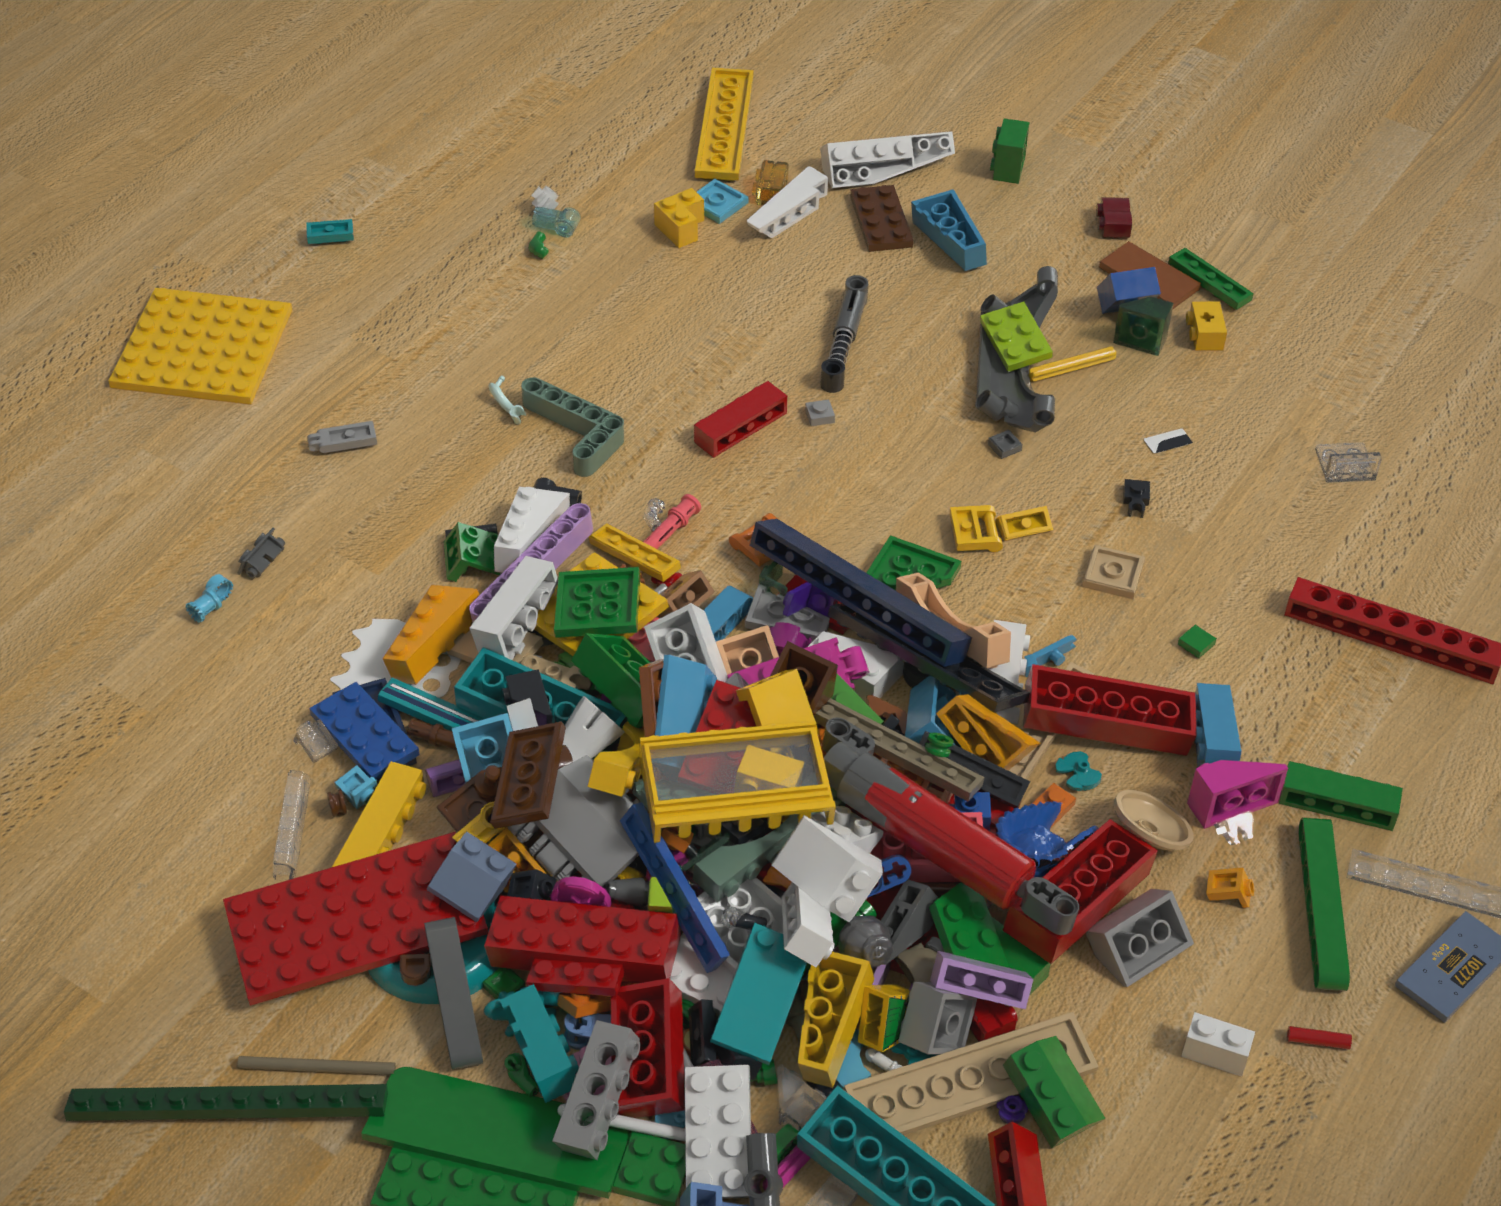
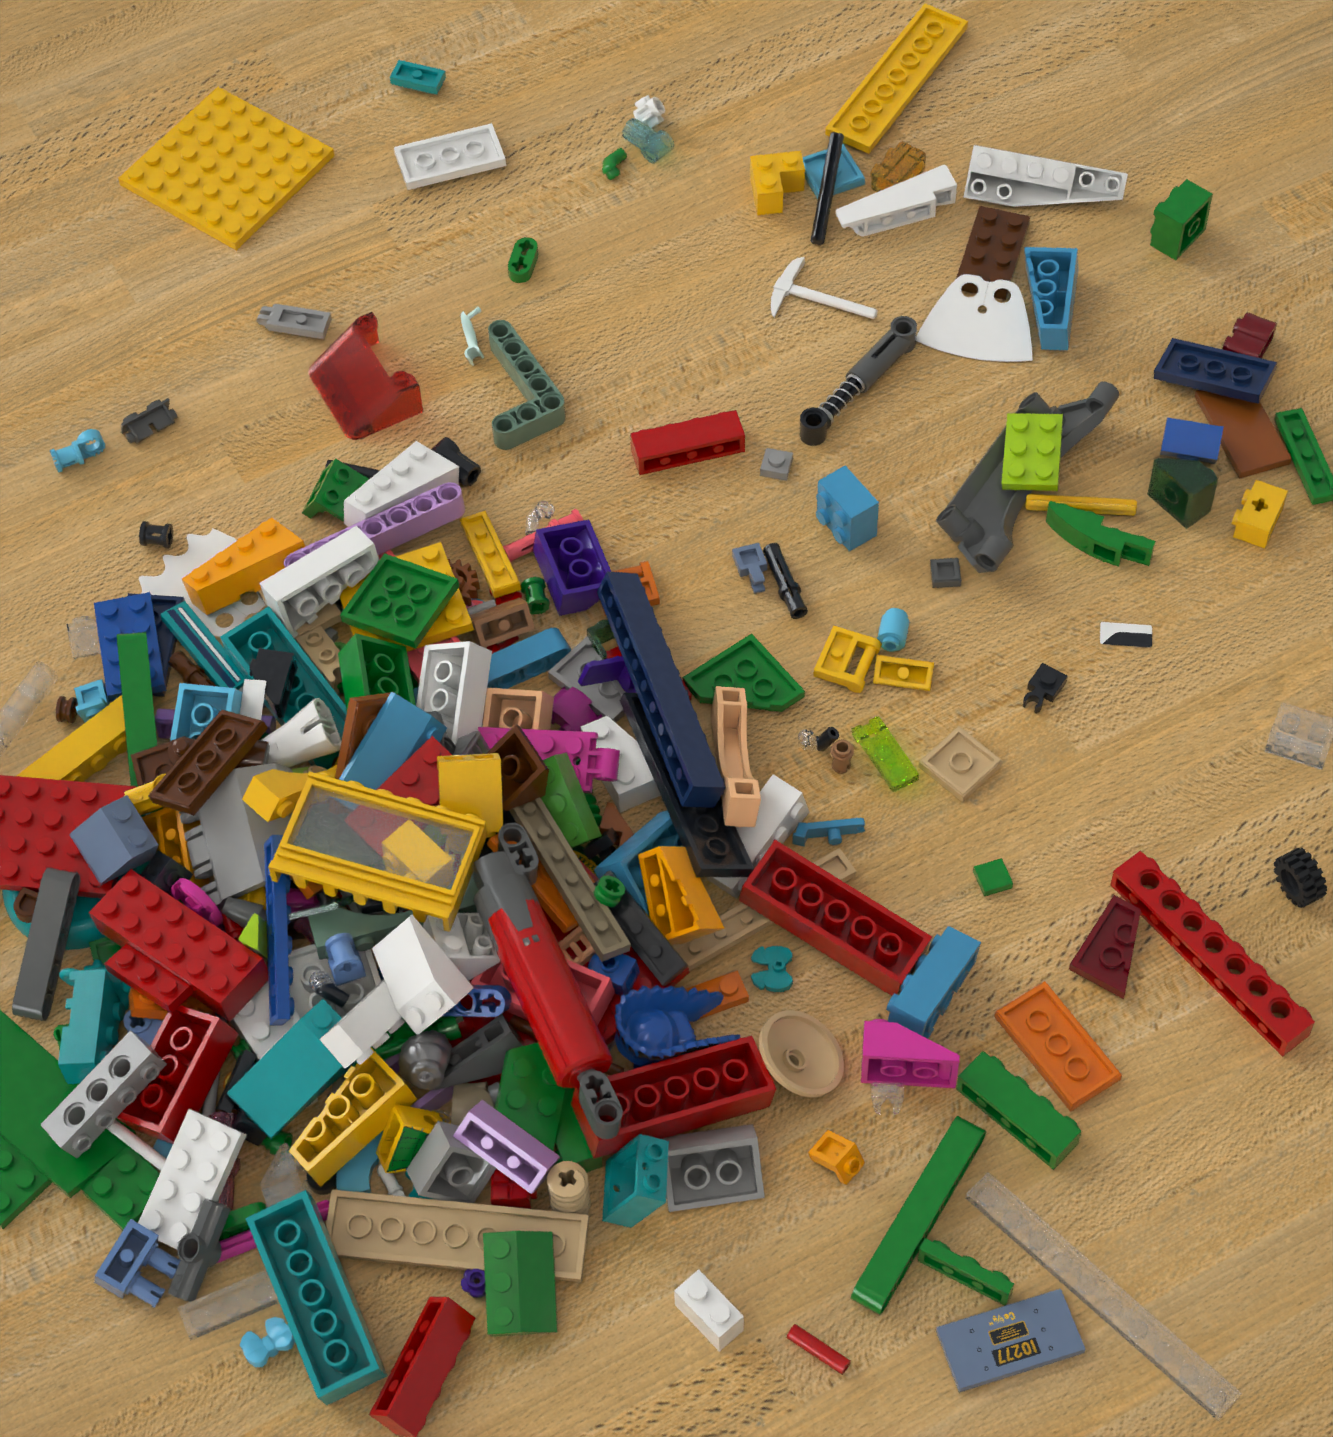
camera: 30 degrees right, 10 degrees up
(328, 638) = (148, 529): none -> black bush
(397, 279) = (449, 156): none -> white plate
(409, 764) = (136, 696): none -> green beam
(436, 464) = (357, 385): none -> clear red windscreen
(512, 334) = (518, 259): none -> green beam
(691, 560) = (535, 595): none -> green bush
(711, 536) = (571, 565): none -> dark purple slope
(726, 210) = (827, 188): none -> black axle
(738, 290) = (785, 286): none -> white piece
(748, 887) = (344, 959): none -> medium blue piece
(850, 486) = (751, 562): none -> sand blue plate
(895, 495) = (795, 602): none -> black pin
(905, 420) = (847, 508): none -> dark azure brick
(921, 272) = (961, 330): none -> white piece
(995, 596) = (817, 743): none -> arm
(997, 495) = (893, 629): none -> medium azure brick
(1024, 592) = (842, 753): none -> medium nougat pin
(1046, 996) = (569, 1188): none -> tan piece
(1053, 583) = (885, 754): none -> clear neon green plate
(1072, 971) = (638, 1189): none -> teal window
(1097, 381) = (1088, 534): none -> green slope
(1107, 242) = (1215, 370): none -> dark blue plate
(1318, 656) = (1109, 947): none -> dark red wing
(1331, 740) = (1058, 1046): none -> orange tile
(1390, 928) = (966, 1271): none -> green plate
(1428, 544) = (1300, 877): none -> black tyre

